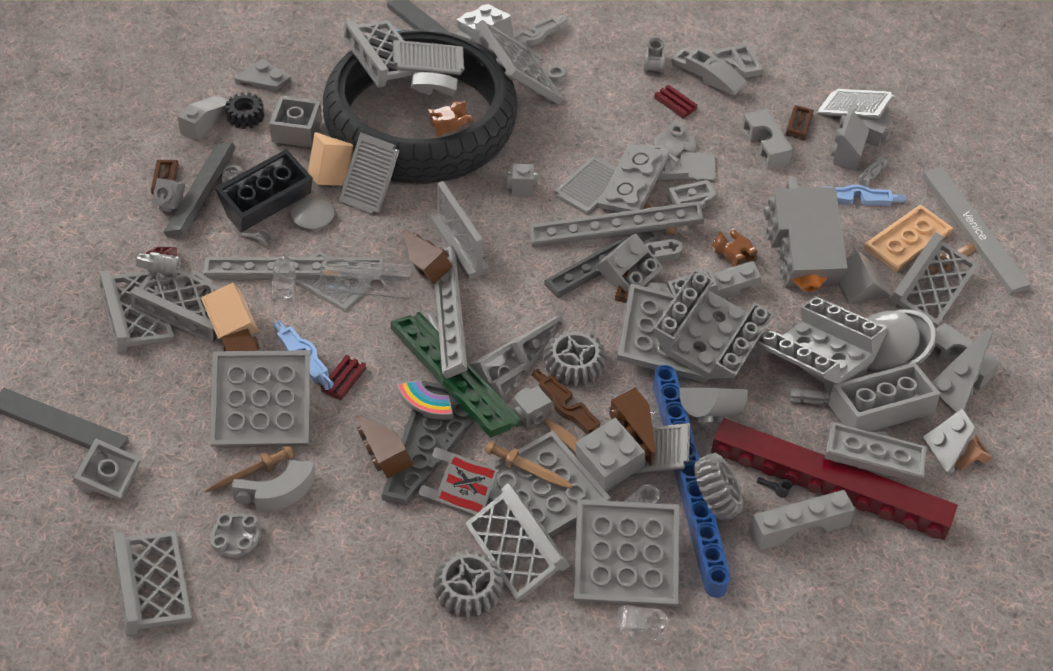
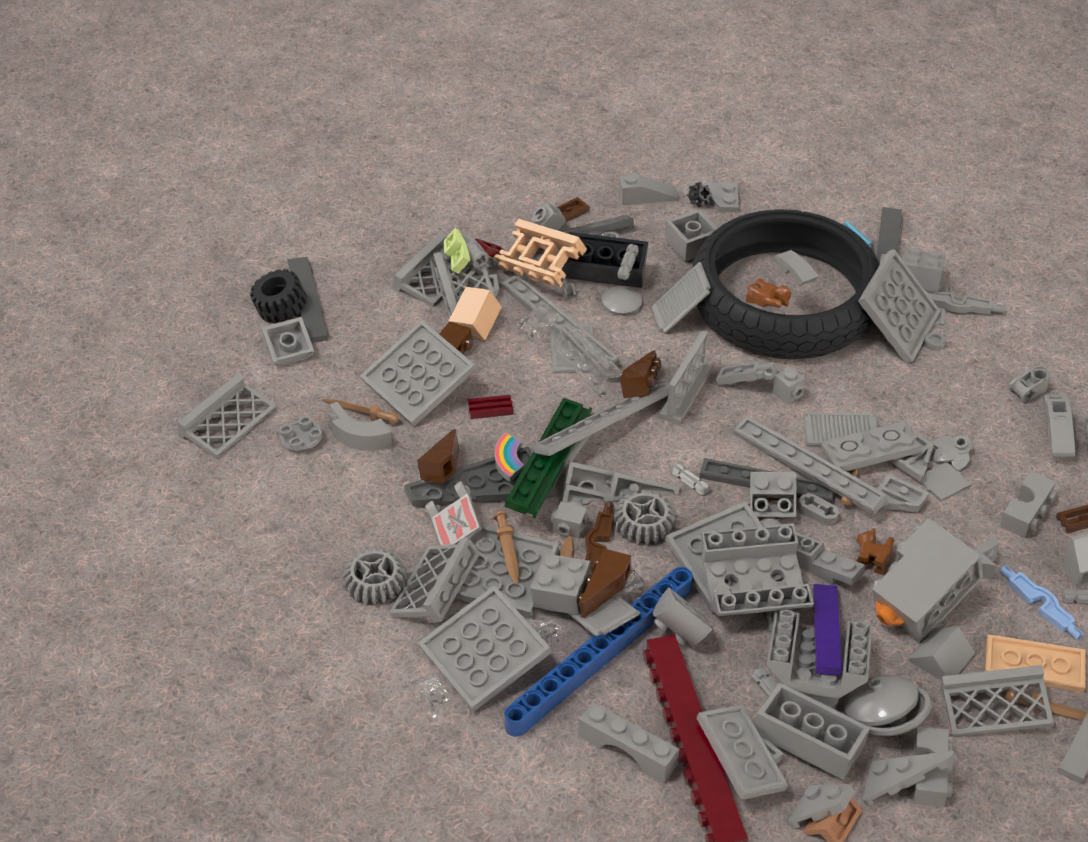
camera: 55 degrees right, 5 degrees down
(29, 427) = (278, 296): none -> black tyre
(149, 273) = (456, 249): none -> yellowish green slope
(209, 207) = (540, 238): none -> light nougat fence
(248, 118) = (674, 205): black tyre -> none
(250, 84) = (699, 194): none -> black gear
(294, 342) = (487, 375): light blue piece -> none
(295, 176) = (627, 262): none -> light grey axle
(329, 160) = (671, 270): light nougat slope -> none
(368, 54) = (781, 216): light grey fence -> none
(428, 57) = (819, 248): light grey window -> none
(485, 194) = (746, 372): none -> light grey hinge
(557, 303) = (690, 479): none -> light grey axle
(676, 99) = (1000, 415): dark red tile -> none
(719, 486) = (594, 680): light grey gear -> none
(779, 488) = (652, 712): black hand -> none
(803, 326) = (826, 630): none -> dark purple tile

